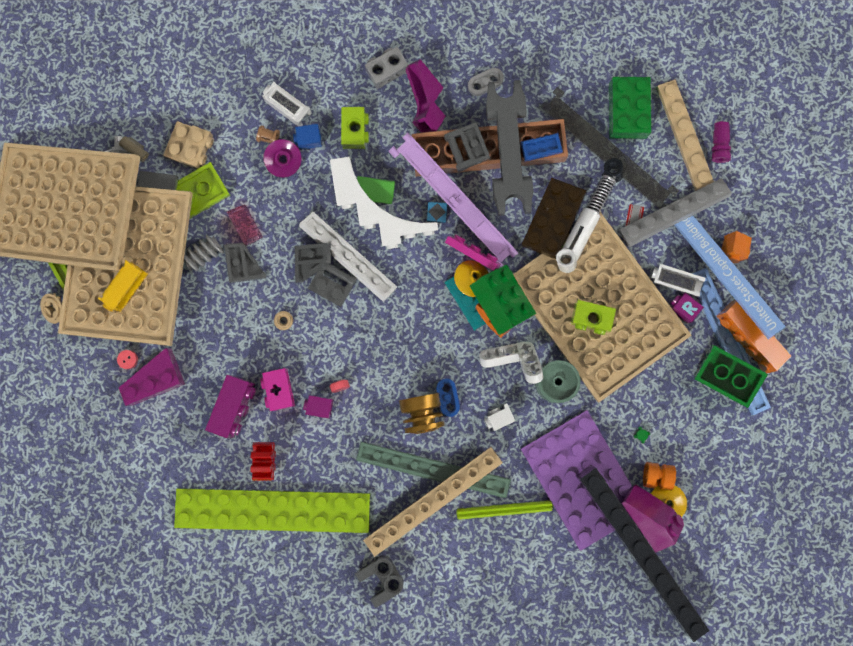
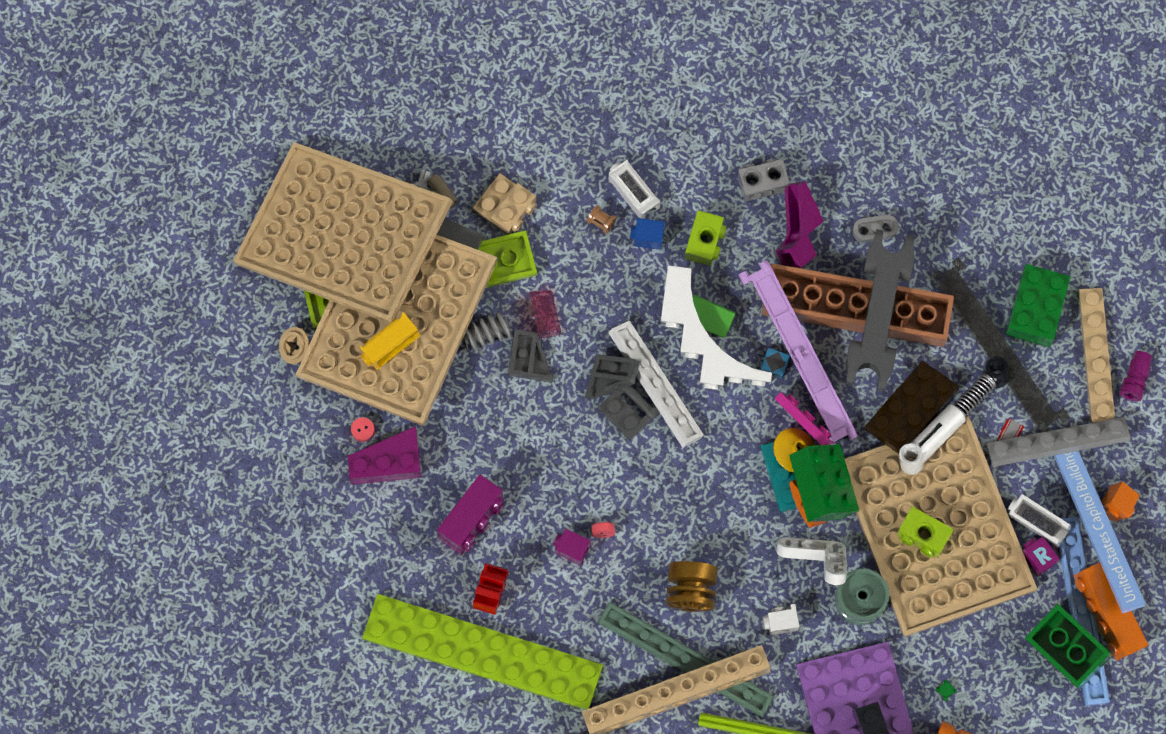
camera: 15 degrees right, 10 degrees down
(275, 151) = (608, 238): magenta dish -> none
(279, 316) = (555, 430): tan plate -> none
(281, 379) = (529, 527): dark pink brick -> none
(448, 397) = (727, 580): blue plate -> none
(472, 143) = (839, 295): dark grey plate -> none
(541, 147) = (917, 320): blue plate -> none

